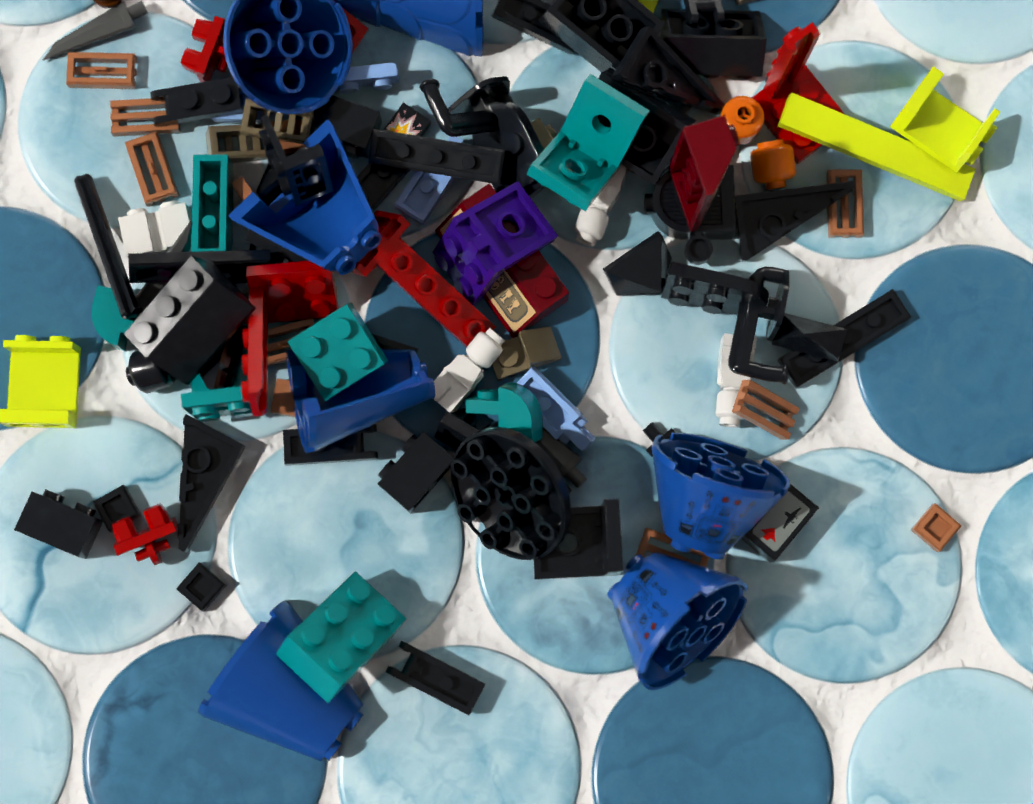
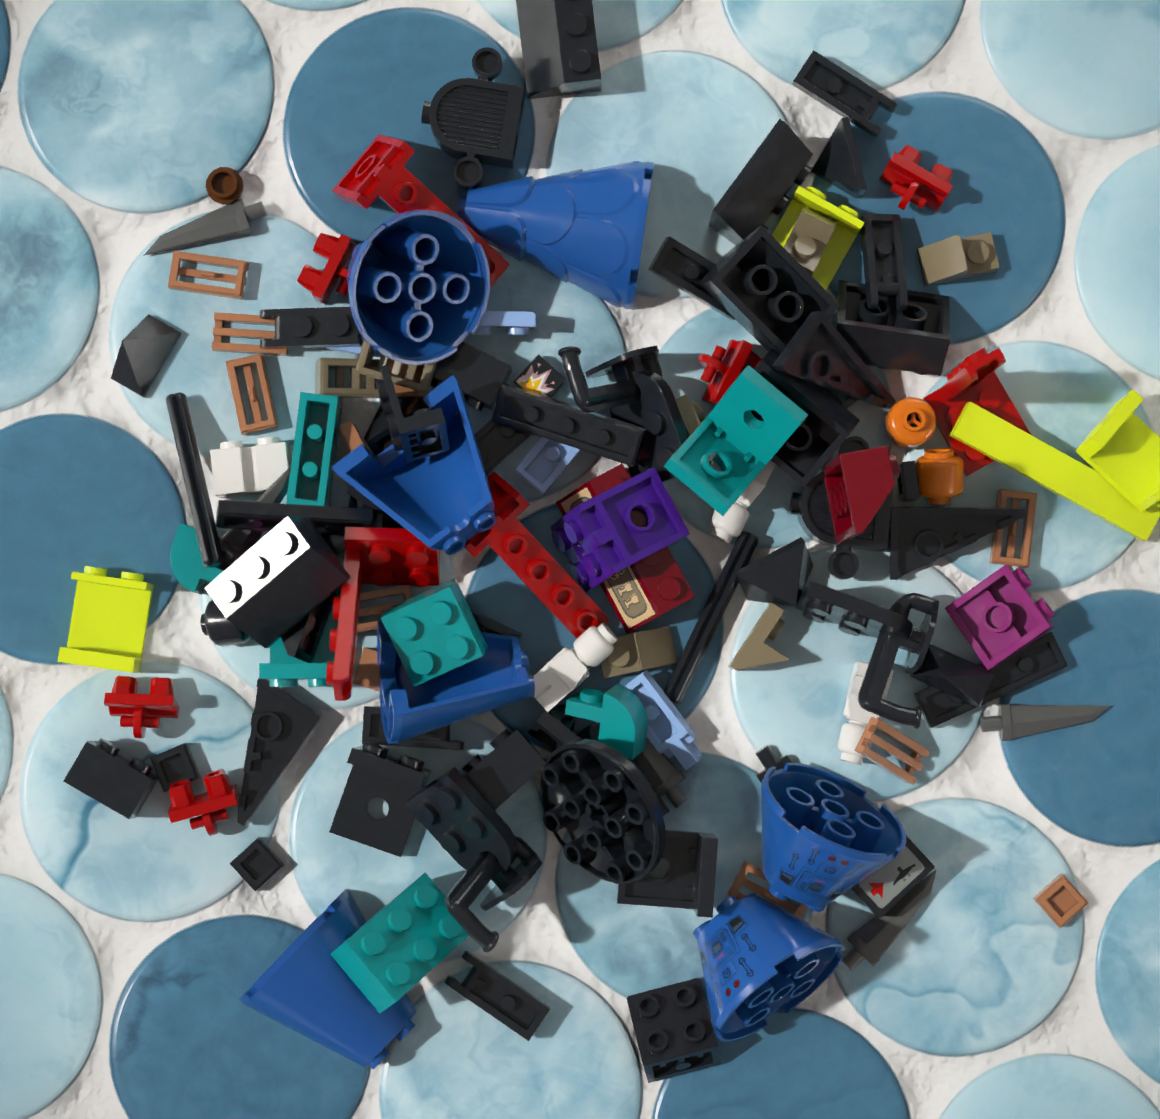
camera: 10 degrees right, 5 degrees up
(50, 146) = (144, 354): none -> black slope
(80, 457) = (141, 710): none -> red hips
(312, 491) = (382, 777): none -> black bracket
(399, 537) = (478, 843): none -> black plate
(566, 93) = (725, 367): none -> red hips
(586, 314) = (710, 617): none -> black axle
(602, 690) = (673, 1030): none -> black bracket
(631, 337) = (754, 650): none -> dark tan slope
(745, 172) = (908, 482): none -> black tile
(776, 578) = (878, 934): none -> dark grey bar
(845, 278) = (1001, 615): none -> magenta plate
(879, 370) = (1024, 720): none -> dark grey bar

